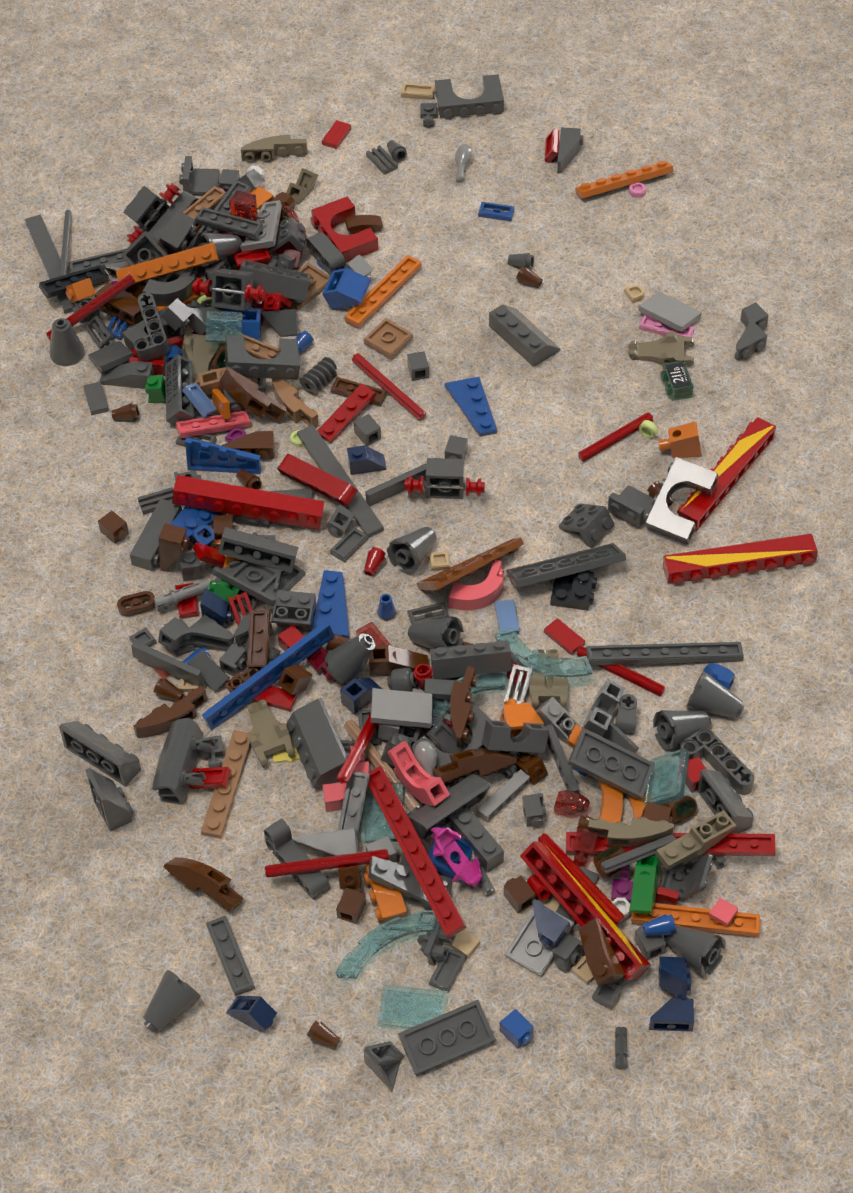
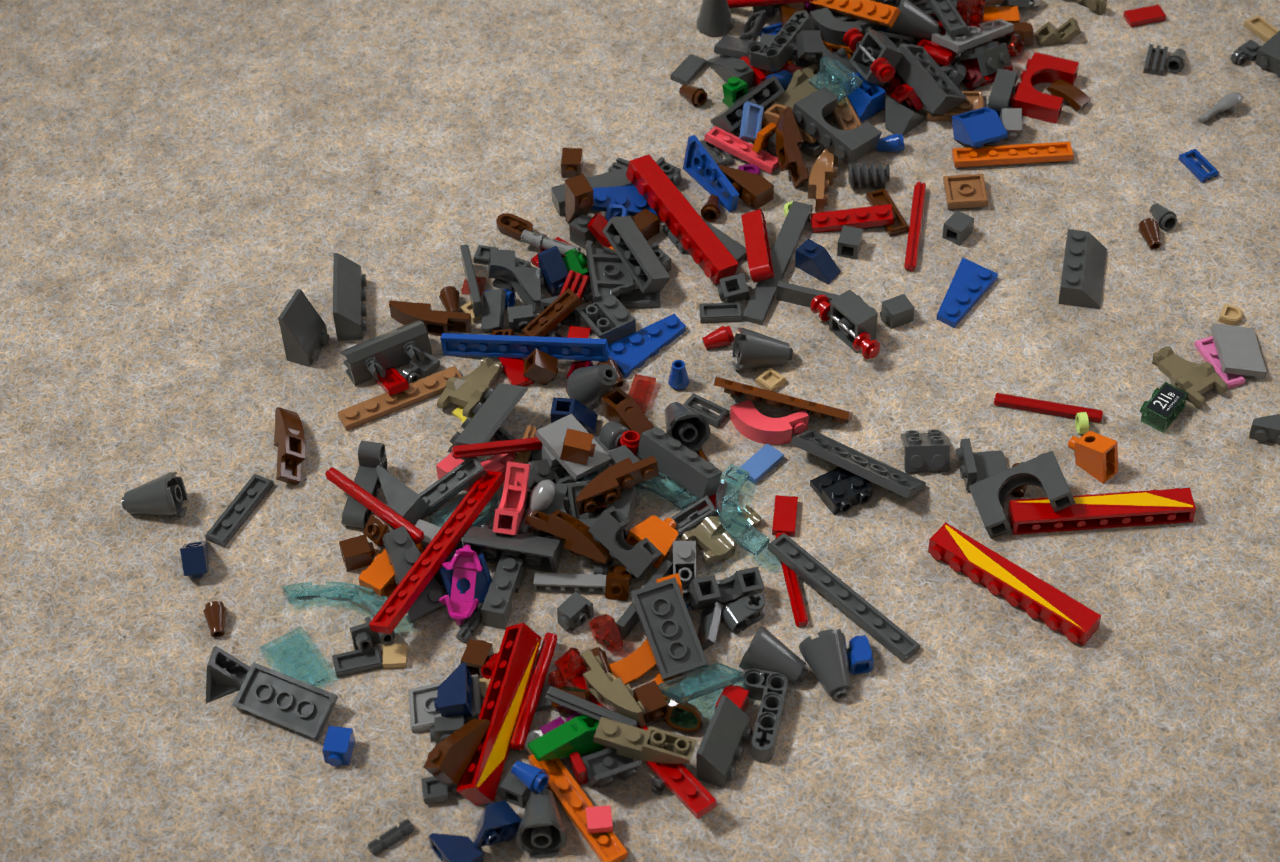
camera: 50 degrees right, 5 degrees down
(412, 704) = (577, 446): none -> dark orange brick

